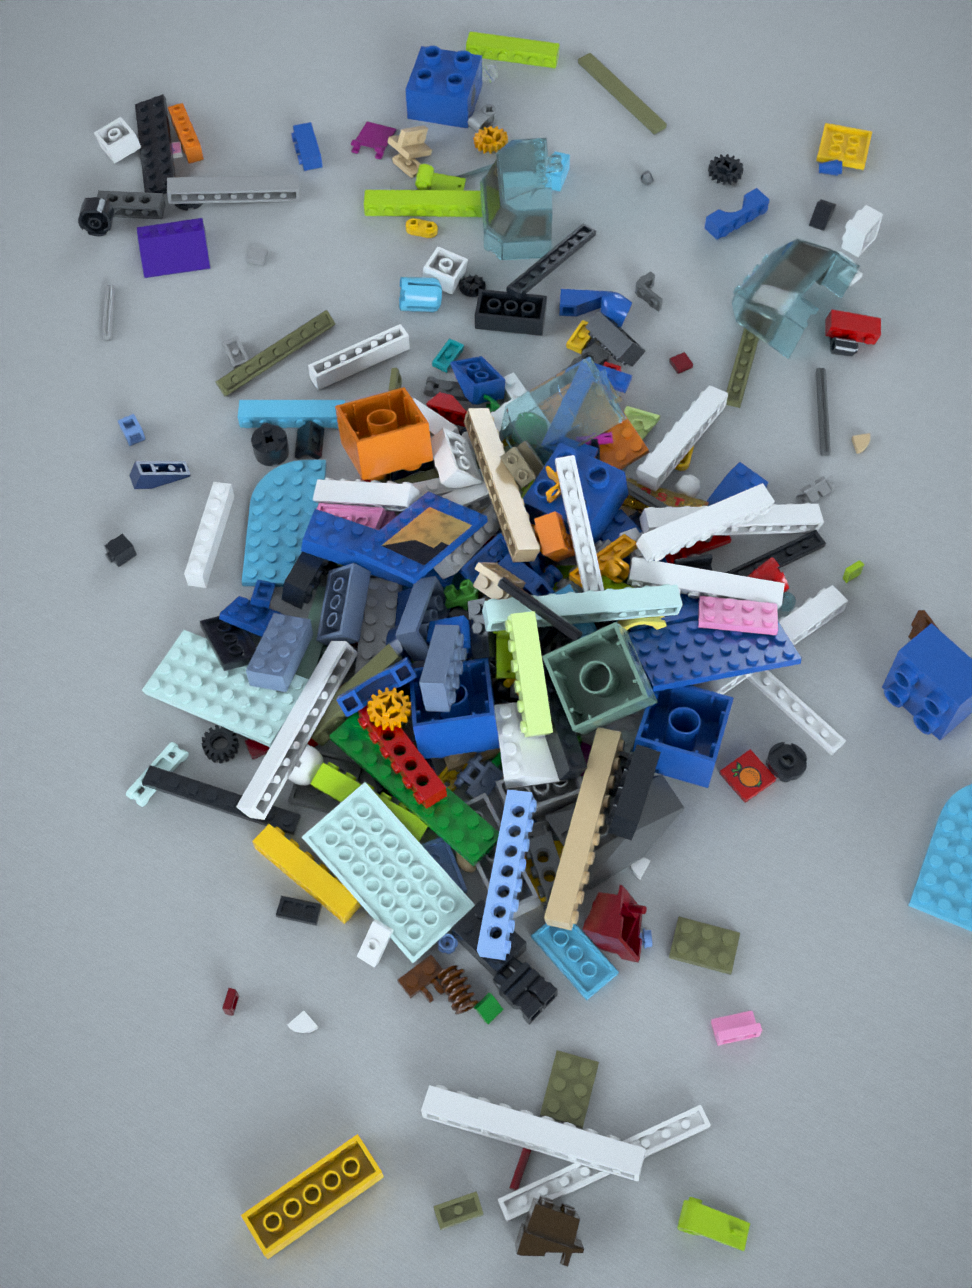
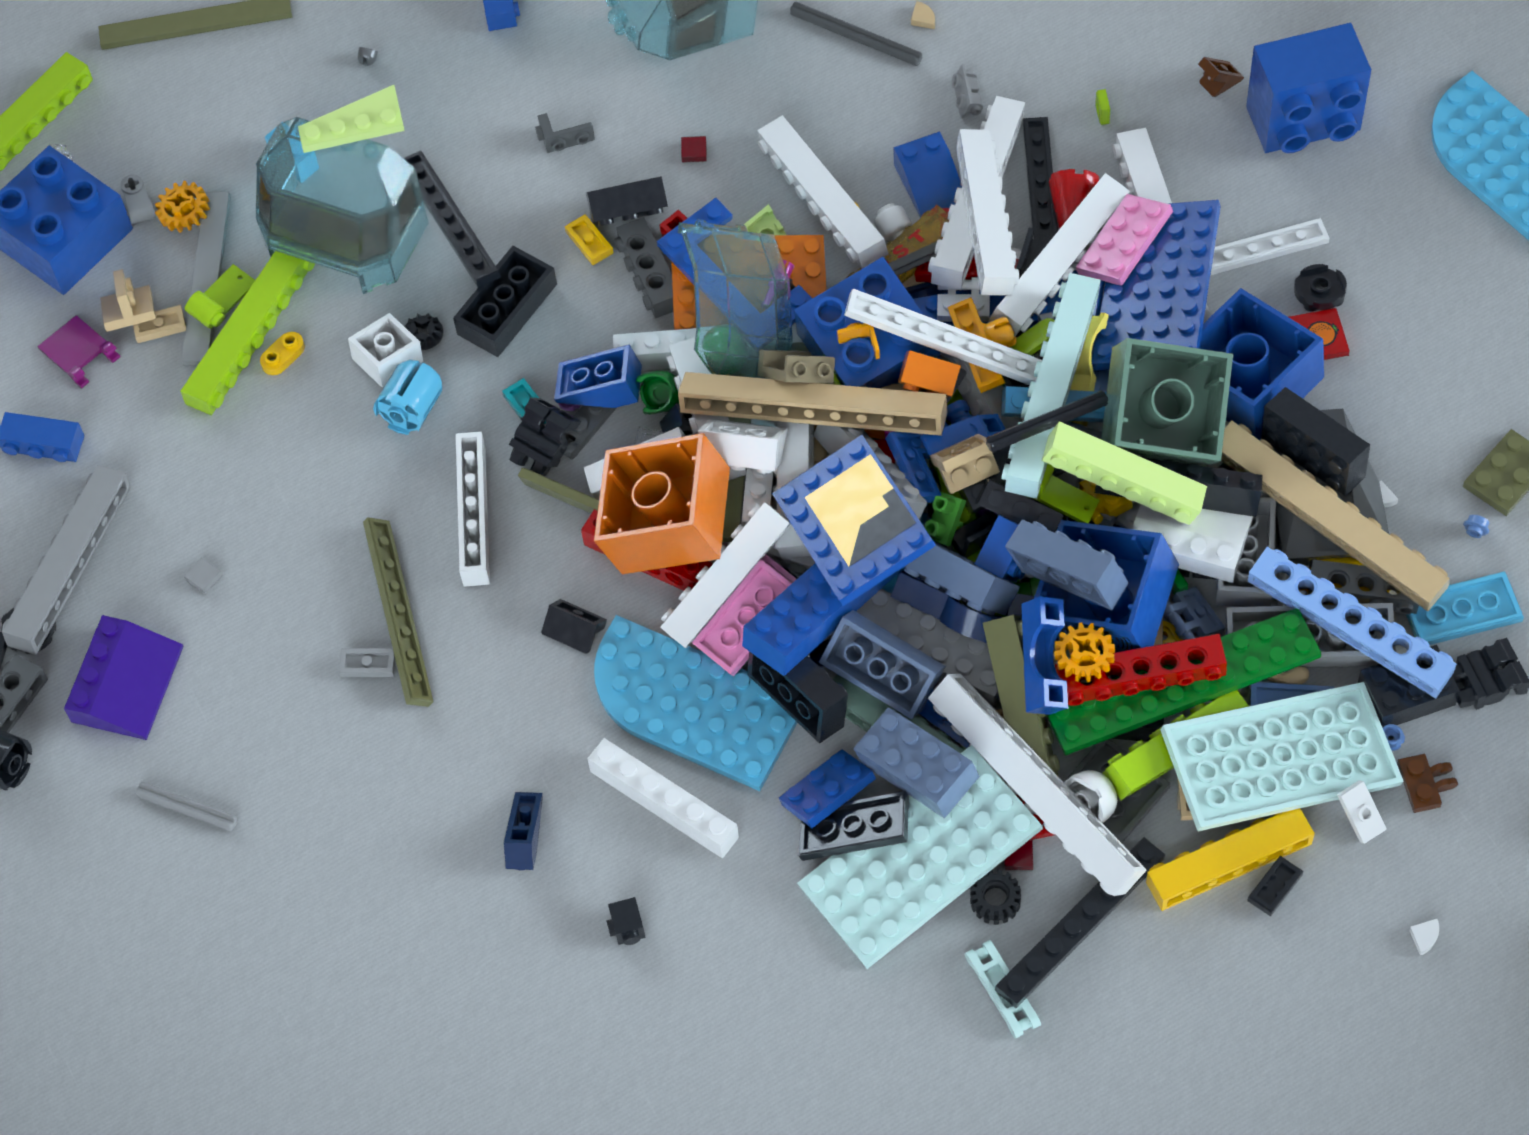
camera: 60 degrees left, 0 degrees up
(131, 429) = (425, 832): medium blue brick -> none
(230, 1001) = (1365, 1004): dark red tile -> none
(262, 594) = (796, 763): blue plate -> none
(270, 444) = (556, 671): black brick -> none
(288, 413) = (516, 628): medium azure brick -> none
(425, 365) = (539, 442): none -> black hips
(448, 408) = (631, 428): red slope -> none
(456, 989) = (1459, 744): reddish brown piece -> none
(488, 1008) = (1493, 723): green tile -> none
(555, 163) = (360, 120): none -> yellowish green wing
(579, 302) = (529, 222): blue slope -> none
(615, 306) = (571, 181): blue piece -> none
(616, 924) = (1456, 544): dark red piece -> none
(741, 368) = (737, 86): olive tile -> none

